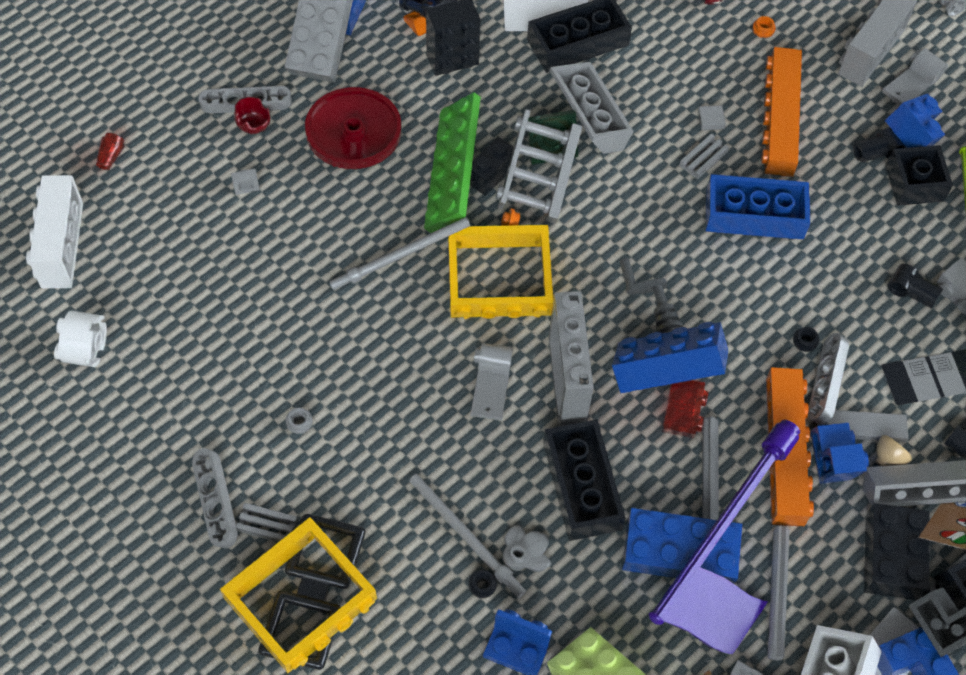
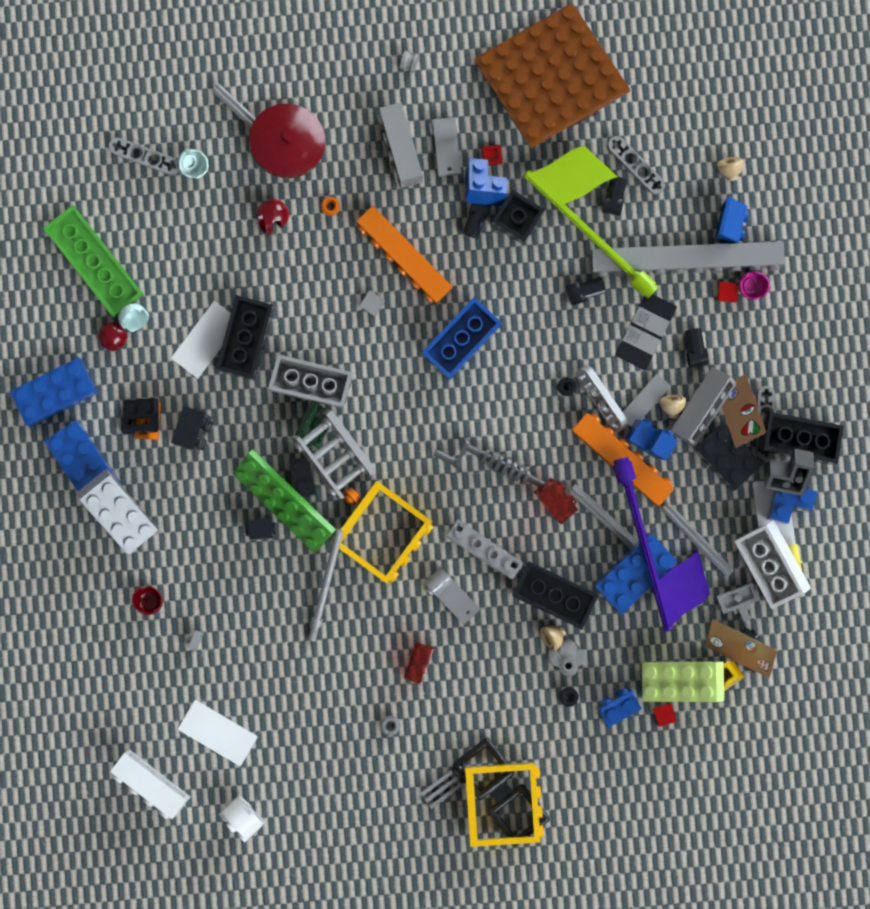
camera: 45 degrees left, 25 degrees up
(109, 150) = (104, 709): clear red cone -> none
(161, 268) = (217, 733): none -> white sticker
(211, 499) = (405, 805): light grey beam -> none
(226, 93) = (124, 591): light grey beam -> none
(353, 128) = (208, 543): dark red dish -> none
(391, 397) = (419, 663): none -> clear red brick
(407, 158) = (260, 529): none -> black brick
(501, 572) = (571, 681): light grey bar -> none
(536, 513) = (552, 636): none -> tan brick
(670, 357) = (526, 489): blue brick -> none
(722, 150) = (394, 318): light grey tile -> none
(949, 122) = (492, 154): none -> red tile

